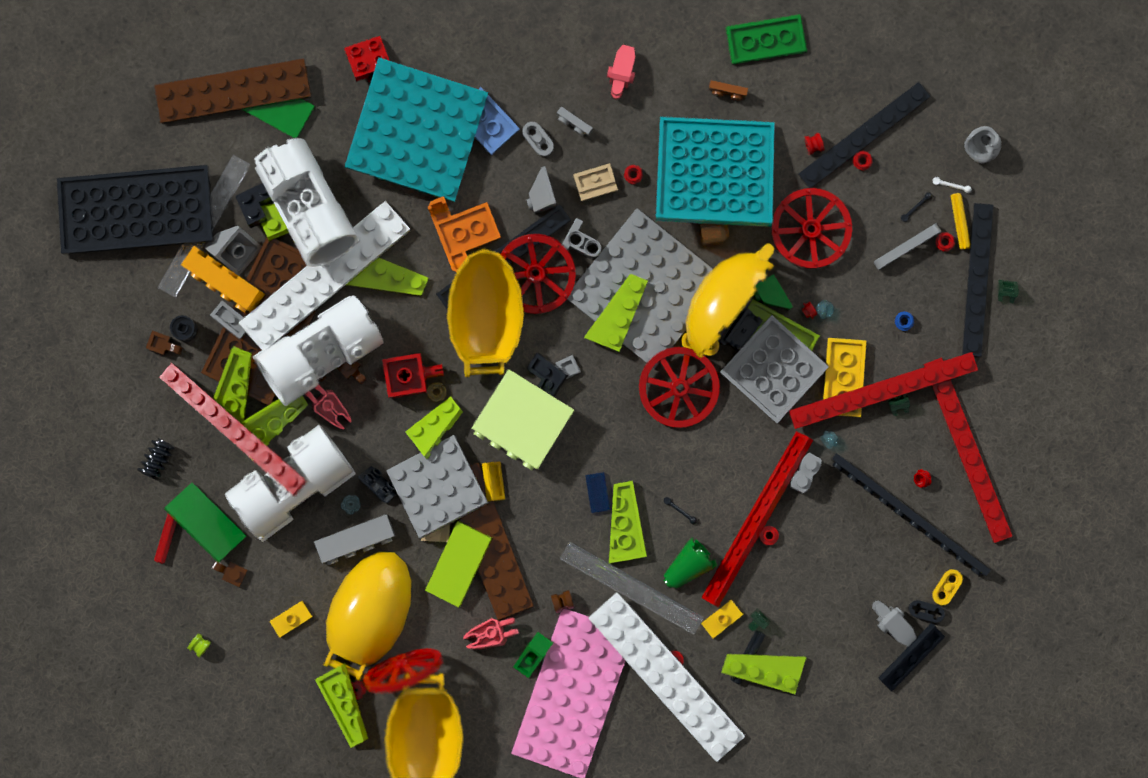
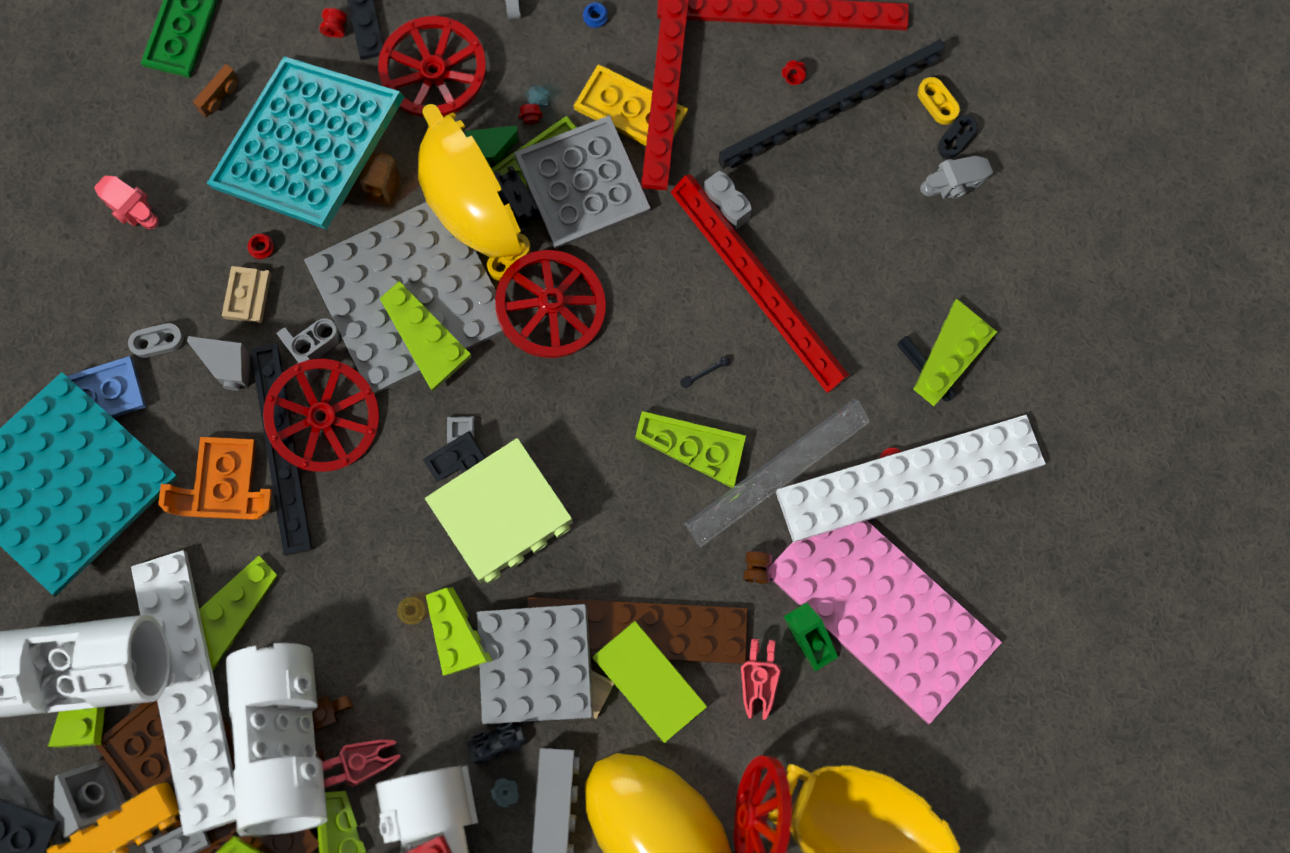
camera: 70 degrees left, 10 degrees down
(251, 202) = (39, 745): black plate -> none
(418, 373) = (363, 624): red brick -> none
(485, 312) = (334, 494): yellow windscreen -> none
(493, 481) = (561, 587): yellow plate -> none
(568, 118) = (149, 291): light grey plate -> none
(597, 492) = (636, 463): clear blue tile -> none
(689, 564) = (780, 387): green cone -> none
(721, 619) = (864, 379): yellow plate -> none
(759, 619) = (886, 335): clear green tile -> none
(773, 540) = (785, 285): red plate -> none
(829, 439) = (698, 158): clear light blue plate -> none
(898, 403) = (690, 58): clear green tile -> none
(911, 657) = (1007, 176): black plate -> none

